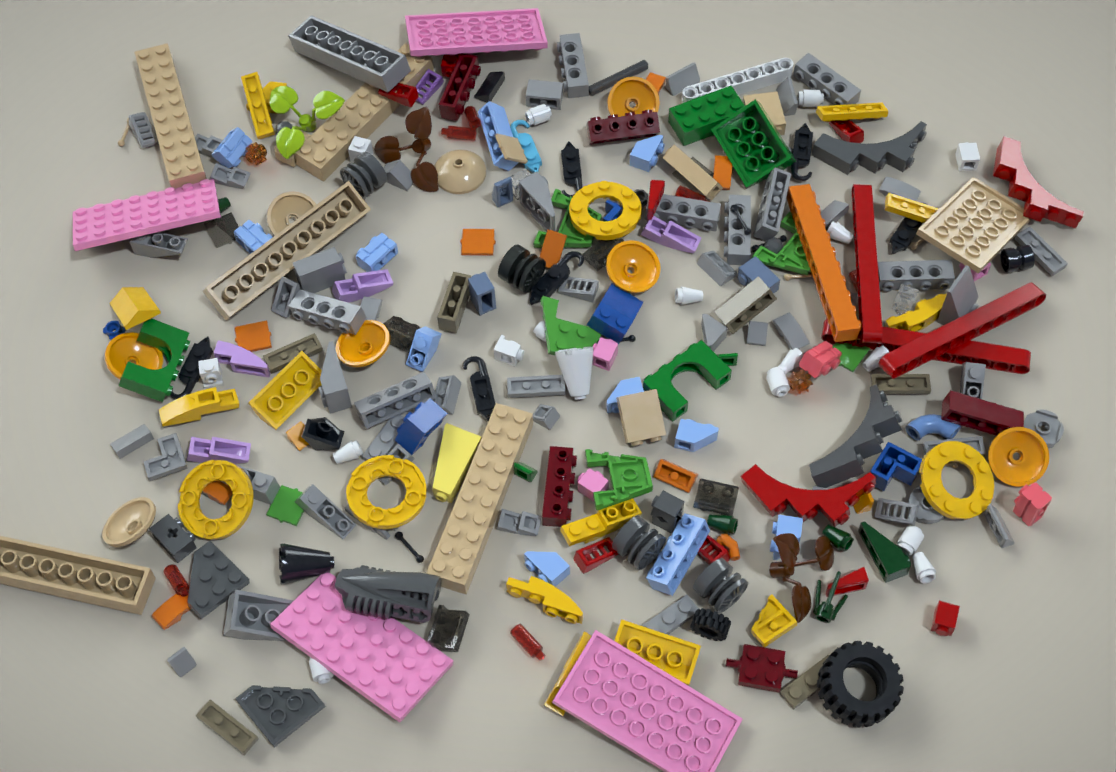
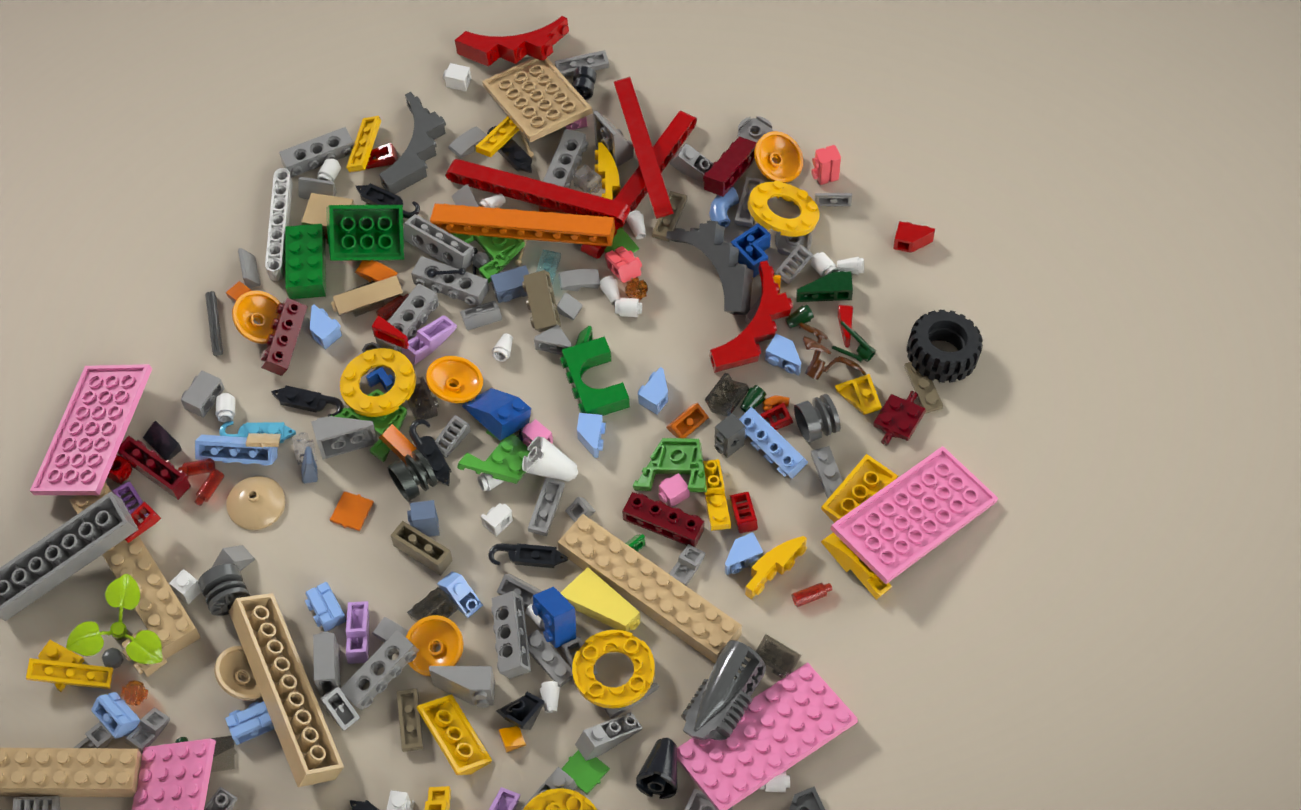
camera: 70 degrees left, 0 degrees up
(240, 359) = (395, 772): lavender slope -> none
(253, 336) = (369, 757): orange piece -> none
(388, 150) = (200, 510): reddish brown plant -> none
(399, 536) = (658, 676): black hinge -> none
(573, 65) = (171, 350): light grey brick -> none
(638, 542) = (751, 468): dark grey wheel -> none
(641, 417) = (622, 425): tan brick -> none
(710, 624) = (850, 439): black tyre -> none
(791, 301) = (549, 262): none -> clear light blue plate
(945, 618) = (903, 267): red brick -> none
(987, 616) = (912, 237): none -> red slope

